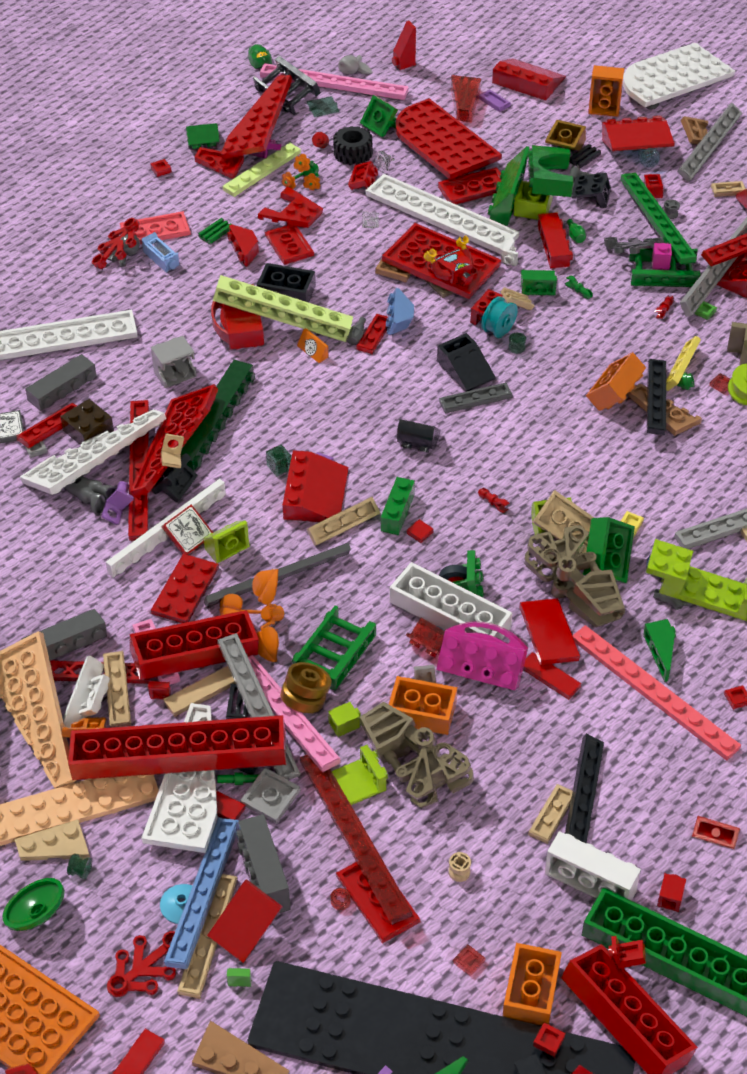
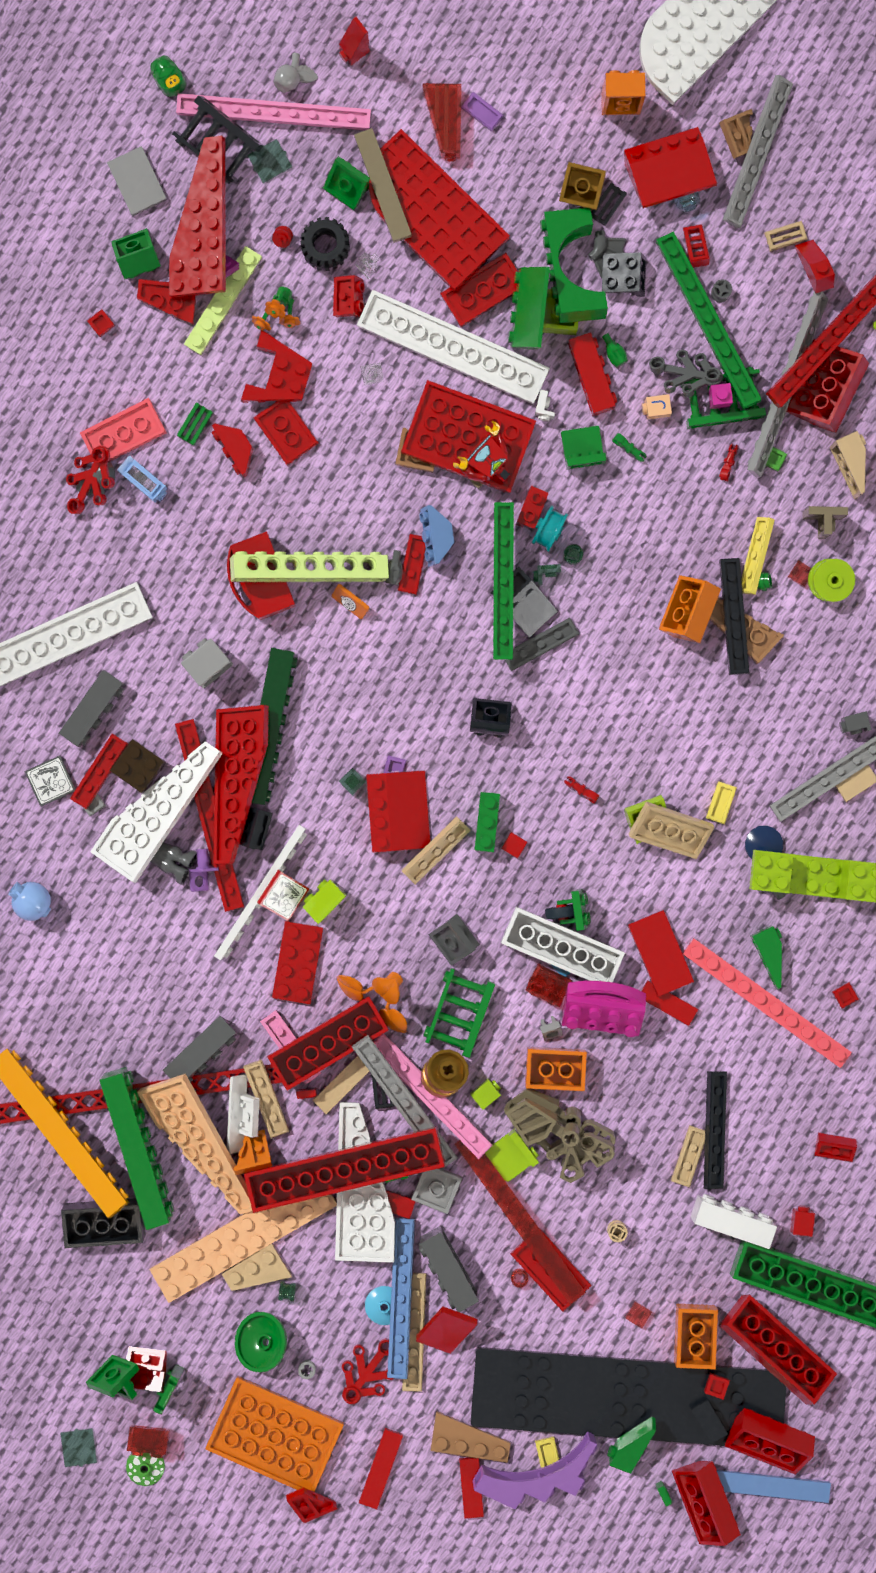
camera: 15 degrees left, 40 degrees up
(71, 947) = (302, 1365): none -> light grey bush
(171, 456) = (247, 823): tan bracket -> none
(217, 103) = (136, 181): none -> light grey tile
(239, 977) = (451, 1371): bright green tile -> none
(283, 572) = (385, 933): dark grey tile -> none
(288, 281) = (300, 513): black brick -> none
(343, 586) = (454, 939): none -> dark grey bracket
(407, 120) = (382, 185): none -> dark tan tile
(450, 336) = (503, 581): none -> green plate
(492, 348) = (549, 570): none -> clear green bracket
(517, 298) = (573, 482): tan tile -> none
(526, 78) = (518, 56): red slope -> none
(590, 597) = (698, 912): dark tan piece -> none
(606, 264) = (657, 407): none -> light nougat brick
(612, 544) = (707, 852): green slope -> none
(628, 953) = (773, 1305): red bracket -> none

